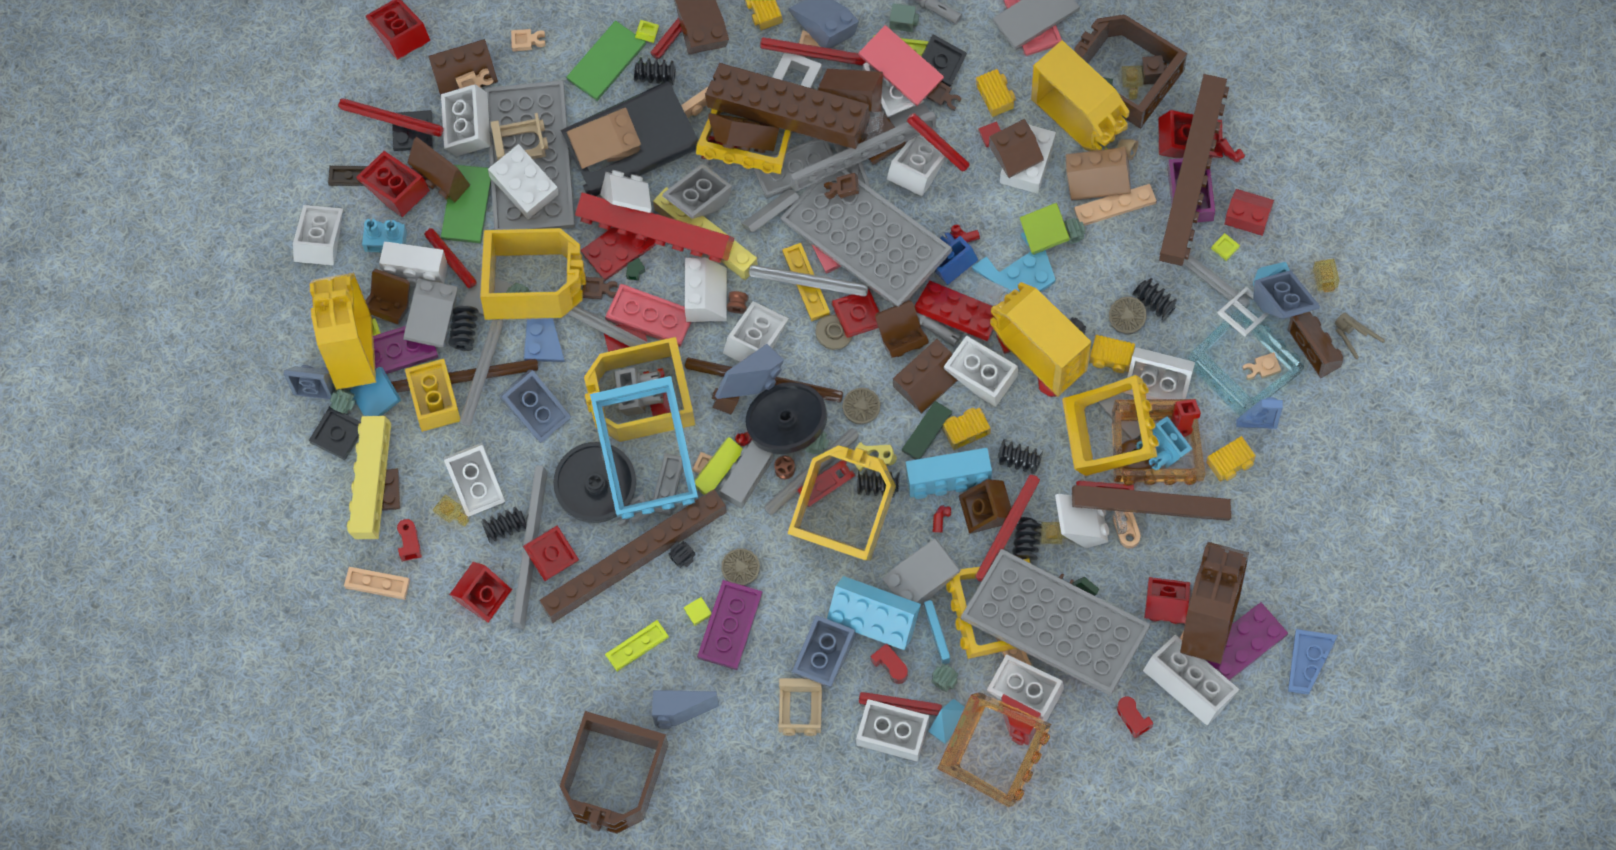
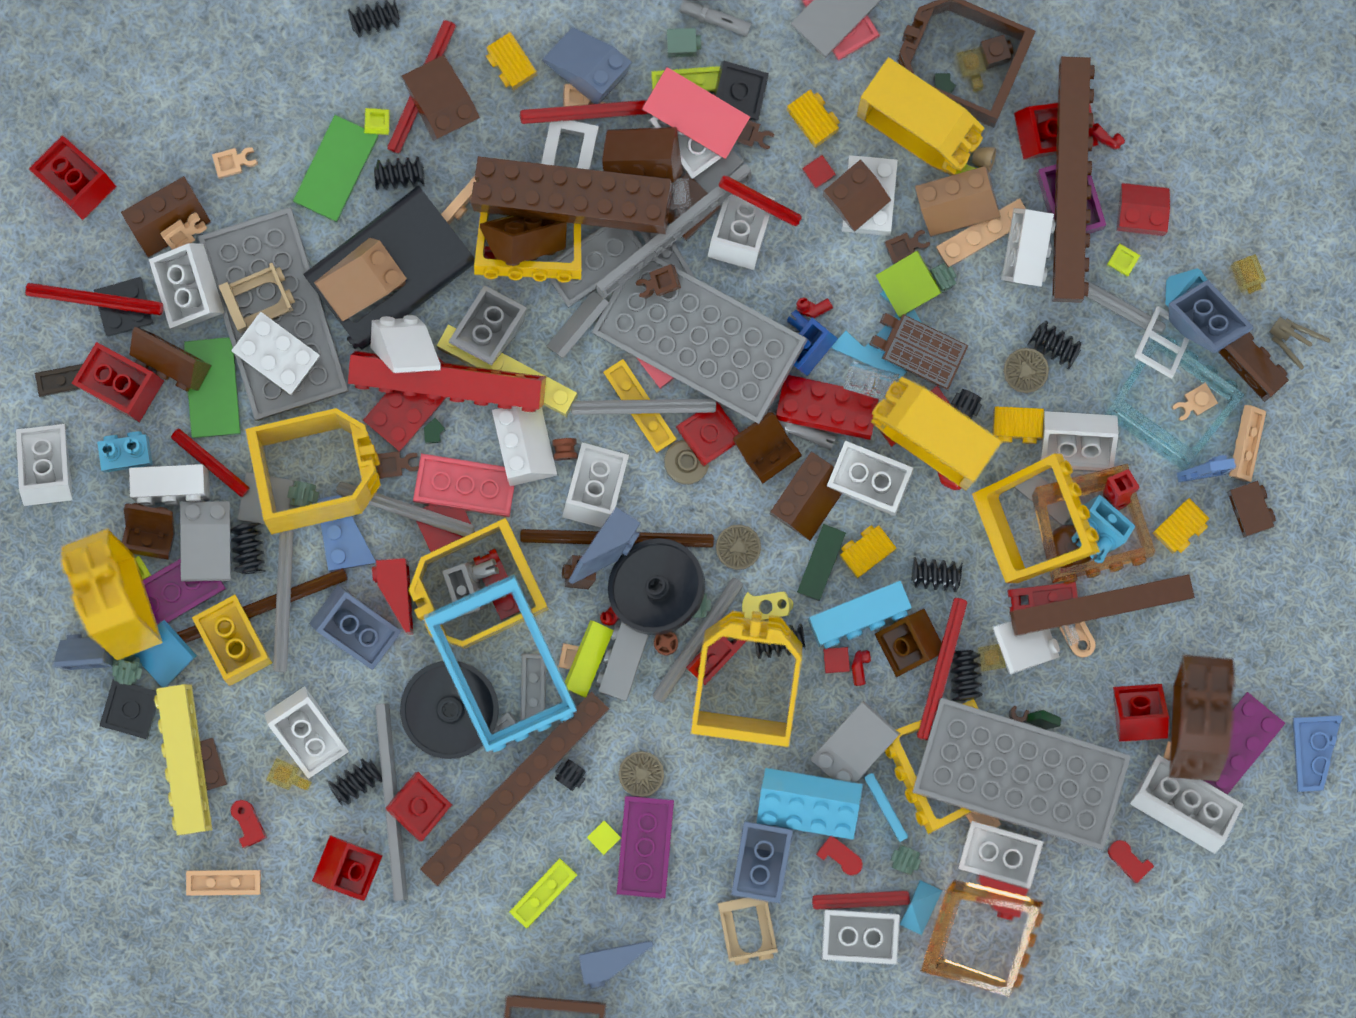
camera: 15 degrees left, 15 degrees up
(573, 368) = (394, 582): none -> red slope
(922, 509) = (836, 660): none -> red tile
(1044, 275) = (920, 350): none -> reddish brown tile
(1046, 198) = (903, 246): none -> reddish brown plate
(1148, 216) = (1028, 247): none -> white brick
(1292, 456) = (1251, 508): none -> reddish brown brick
(1299, 405) = (1248, 442): none -> light nougat plate

